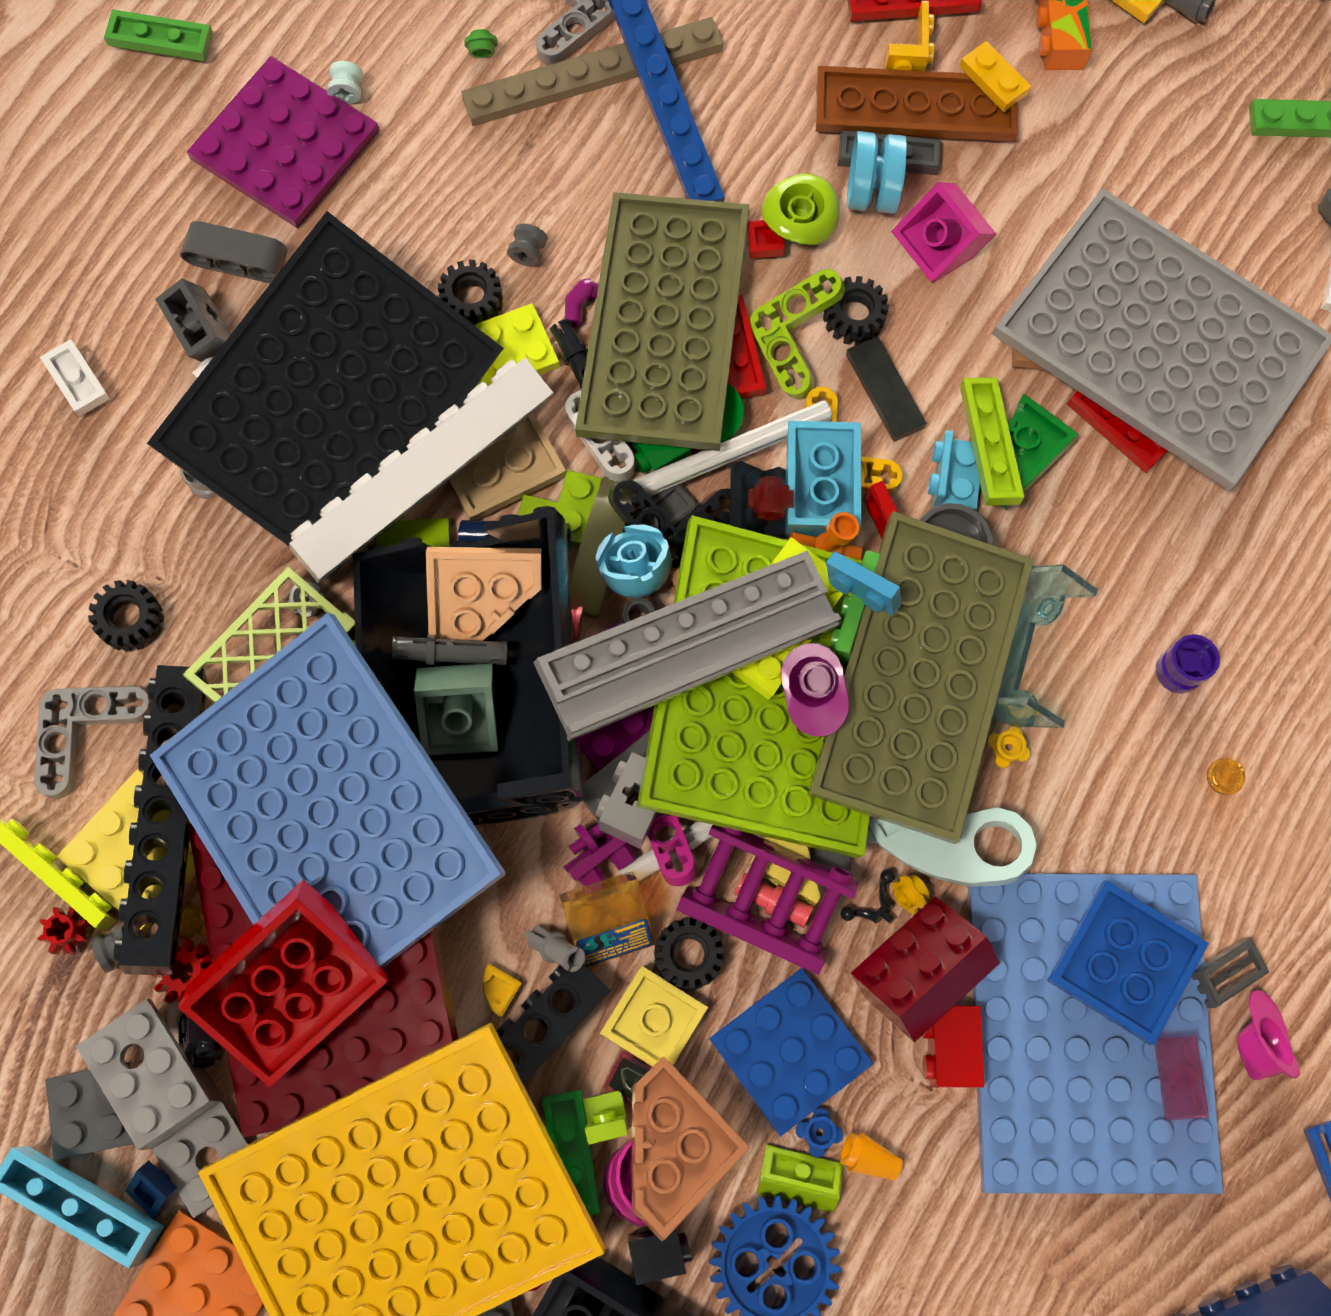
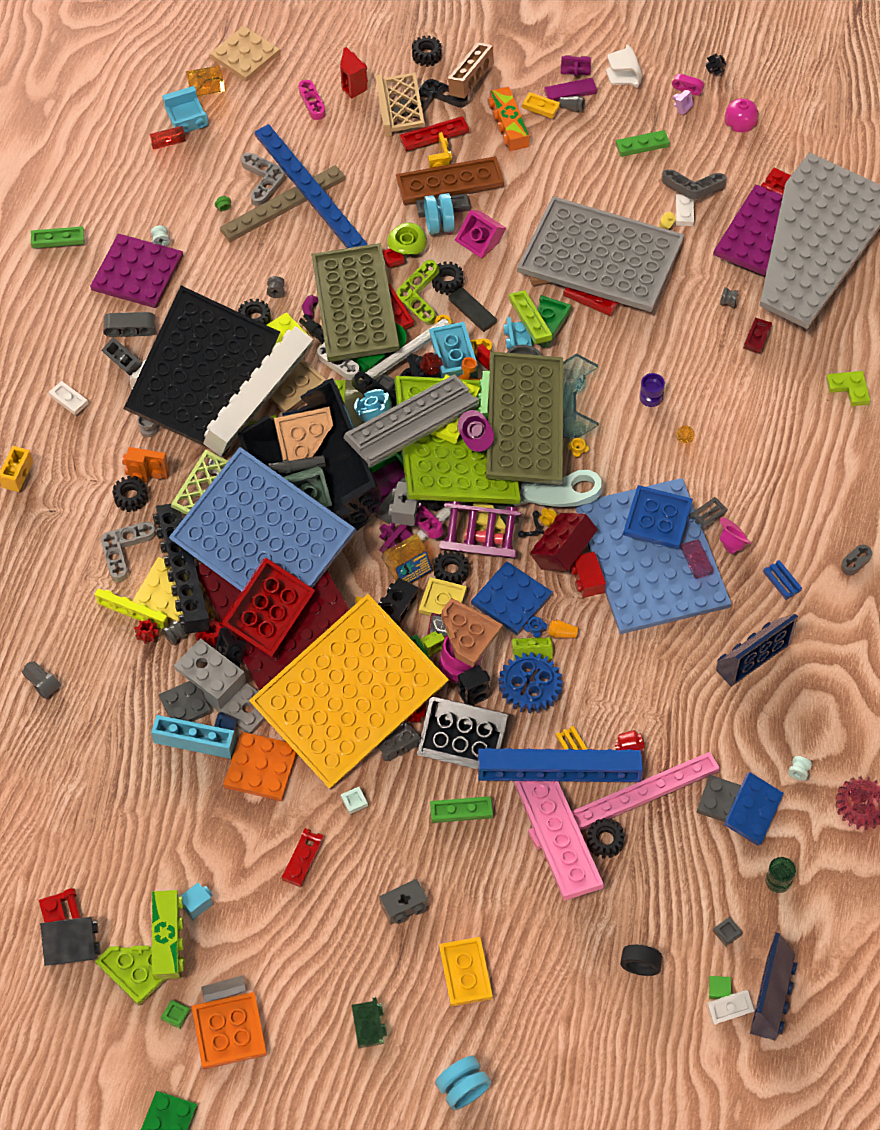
camera: 10 degrees left, 15 degrees down
(163, 568) = (145, 464): none -> orange plate
(555, 948) = (386, 577): light grey axle -> none
(873, 589) = (485, 381): dark azure plate -> none
(995, 76) = (485, 158): yellow plate -> none
(1307, 297) = (667, 220): none -> light yellow piece

